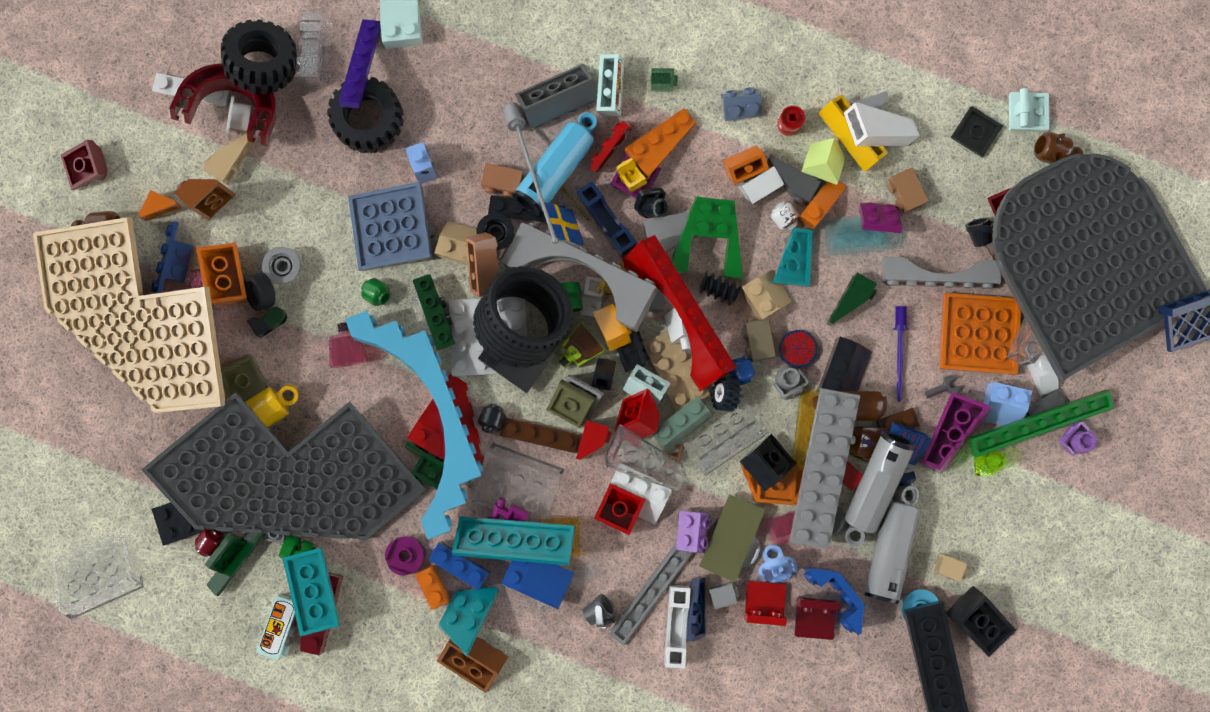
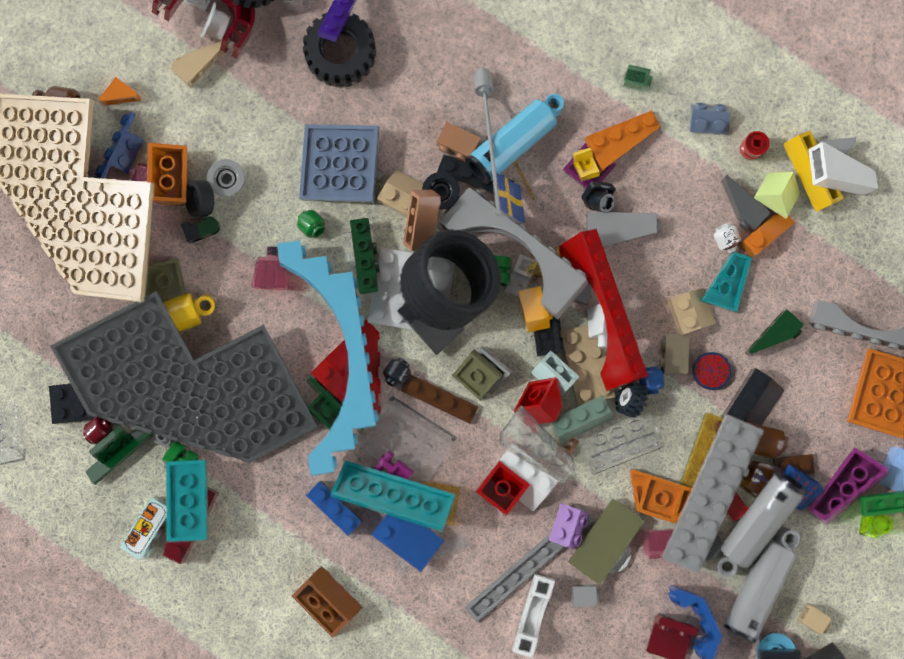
camera: 15 degrees right, 0 degrees up
(84, 164) = (56, 37): dark red slope -> none
(204, 196) = (167, 94): dark orange slope -> none
(395, 561) = (272, 487): magenta plate -> none
(421, 162) = (383, 107): light blue torso -> none
(433, 587) = (304, 523): orange brick -> none
(466, 615) = (331, 558): teal wing -> none
(557, 96) = (530, 71): dark grey slope -> none
(580, 347) = (498, 322): torso -> none
(592, 439) = (492, 414): red slope -> none
(600, 612) = (460, 584): dark grey piece -> none
(603, 374) = (516, 353): black brick -> none
(606, 220) = (551, 203): dark blue arch -> none
(610, 85) = (584, 72): light aqua brick -> none
(616, 139) = (557, 143): red wing -> none
(697, 610) = (555, 607): dark blue wing -> none
(711, 219) = (655, 225): green wing -> none
(719, 289) = (647, 294): black piece -> none
(745, 164) = (700, 179): orange brick -> none
(761, 185) = (711, 202): white hinge -> none
(765, 603) = (624, 612): red bracket -> none
(768, 462) = (657, 475): black slope -> none
(776, 569) = (644, 581): light blue tile -> none
(788, 380) = (695, 399): light grey piece -> none
(847, 237) = (792, 272): clear light blue slope -> none
(880, 217) = (821, 260): magenta plate -> none
(901, 326) = (817, 371): dark purple piece -> none
(907, 190) = (854, 239): medium nougat brick -> none
(908, 479) = (792, 522): dark blue plate -> none
(945, 387) = (846, 441): flat silver bar -> none

